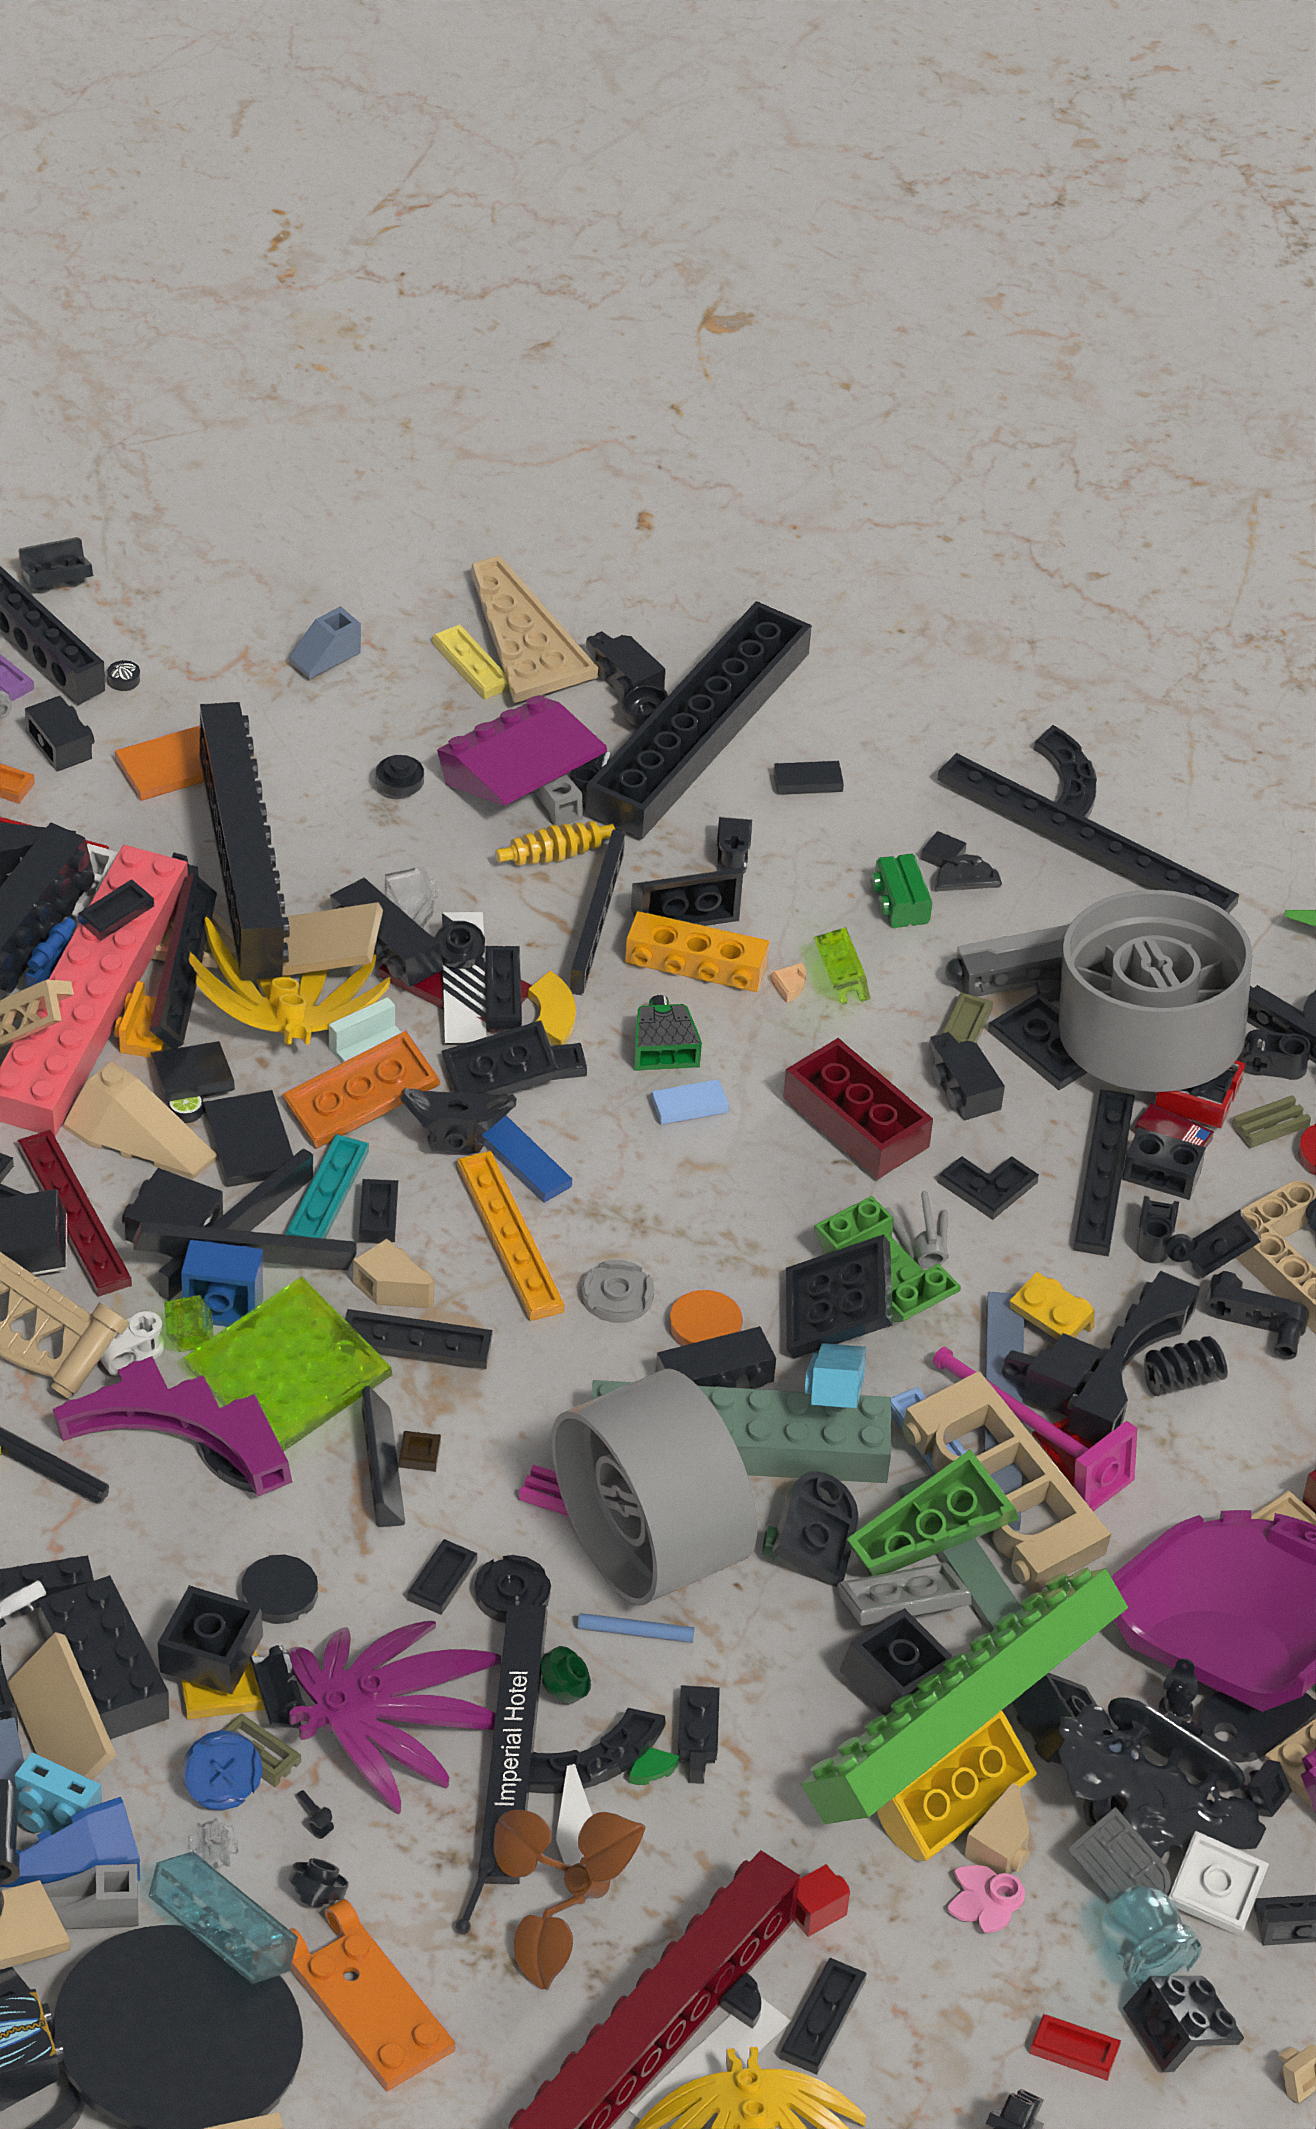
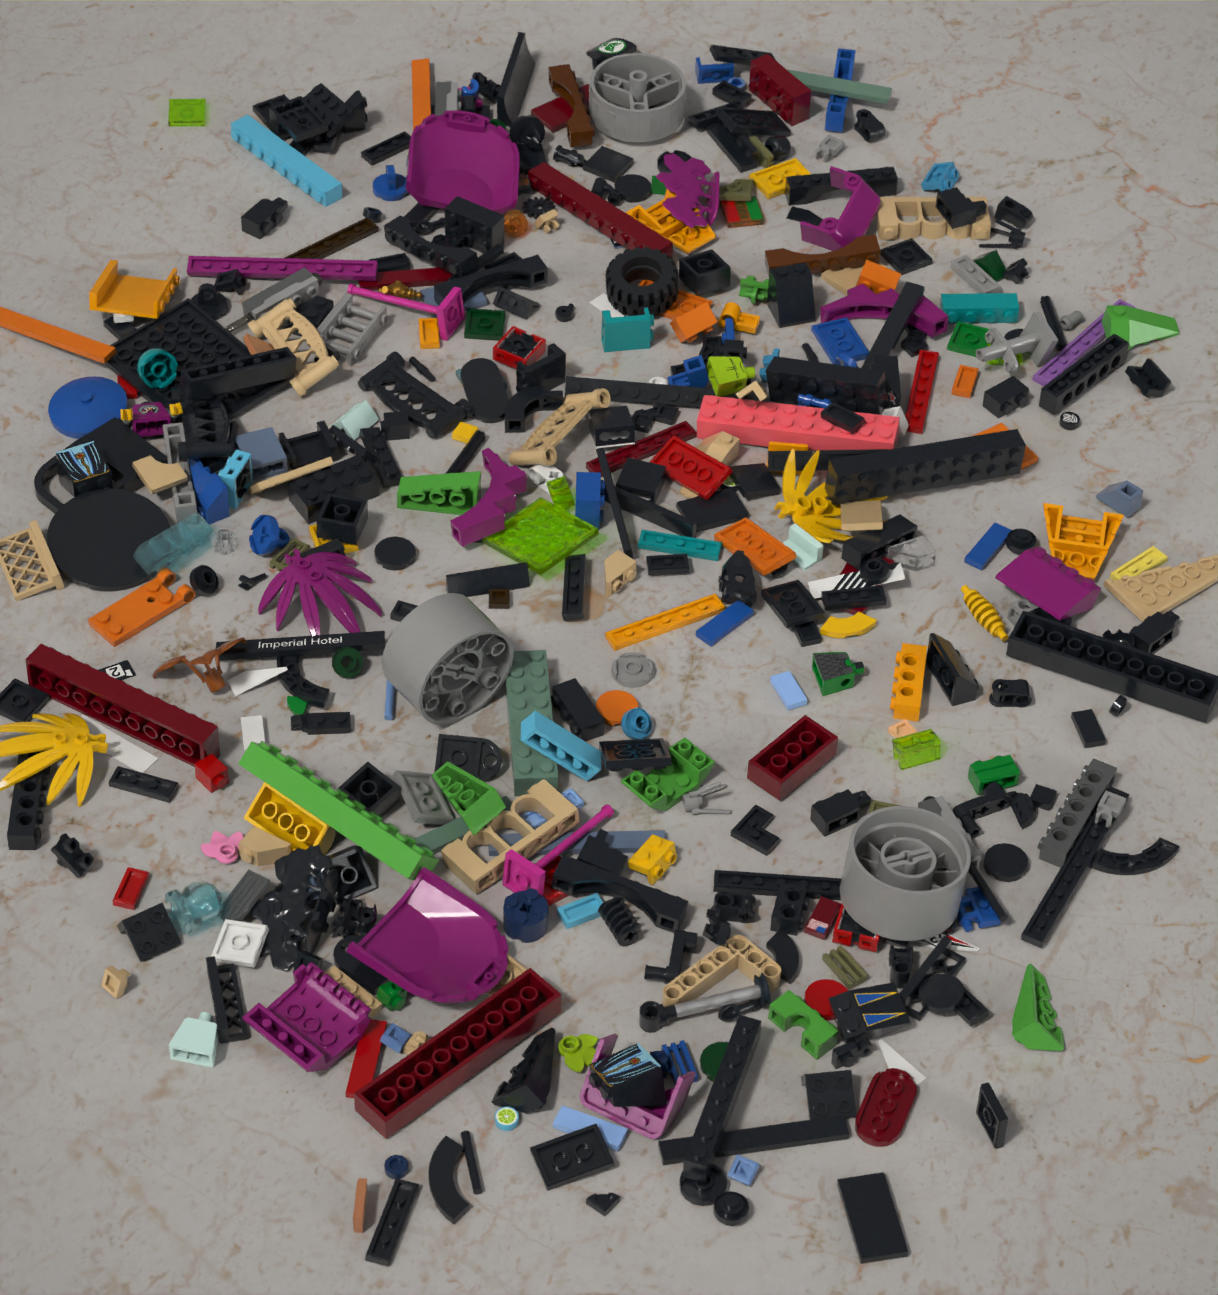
camera: 85 degrees right, 0 degrees up
(152, 1493) = (440, 492): none -> bright green wedge
(161, 1136) = (692, 467): none -> red tile
(397, 817) = (987, 546): none -> blue tile
(414, 704) = (1080, 541): none -> light orange wedge
(487, 1867) = (187, 641): black hinge -> none
(525, 2056) = (119, 670): none -> sticker
(597, 912) = (920, 634): black tile -> none
(716, 1837) = (252, 730): none -> white tile
(743, 2000) = (149, 751): black tile -> none
(757, 1294) = (636, 723): none -> dark azure plate
(772, 733) = (1118, 705): none -> black tile
(955, 898) = (992, 801): none -> black beam
(987, 814) = (1076, 812): none -> dark grey brick
(994, 770) = (1109, 807): none -> light grey plate
(1063, 904) = (1005, 862): none -> black tile
(1154, 1424) = (580, 911): none -> medium azure tile
(1173, 1481) = (525, 916): none -> dark blue brick
(1241, 1185) = (785, 955): none -> black tile

